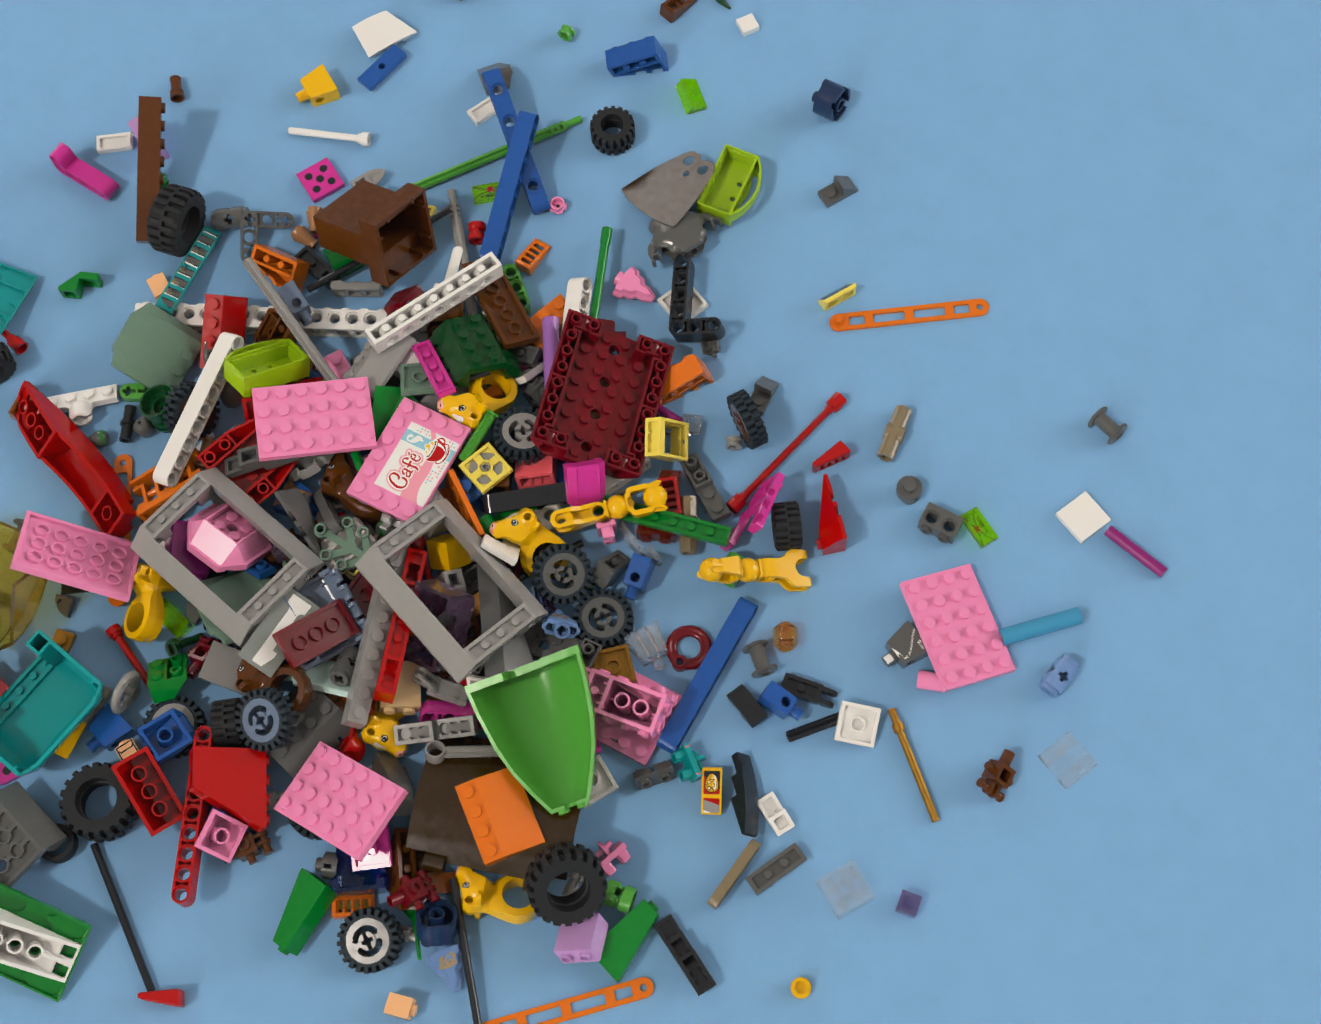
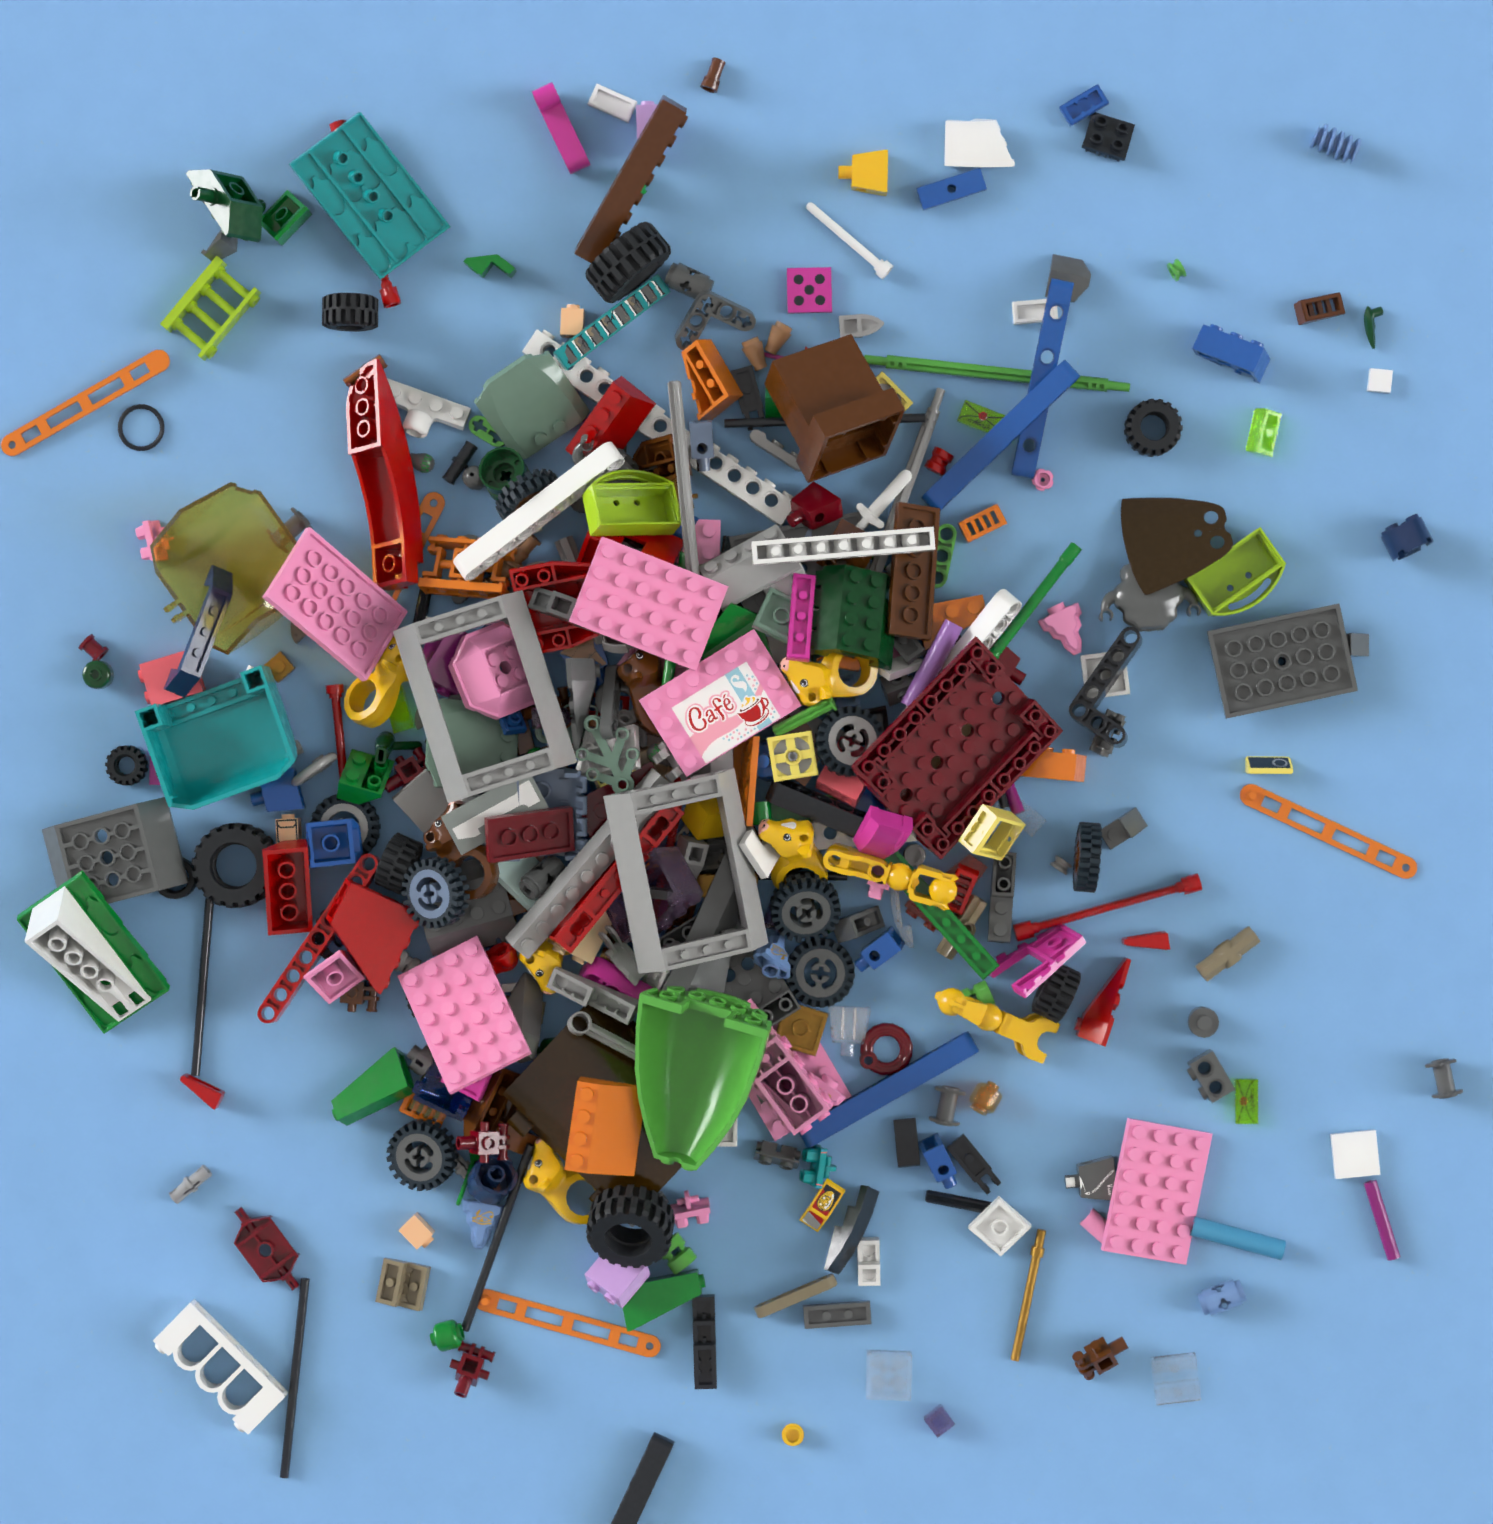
camera: 25 degrees right, 20 degrees up
(799, 221) = (1313, 656): none -> dark grey piece

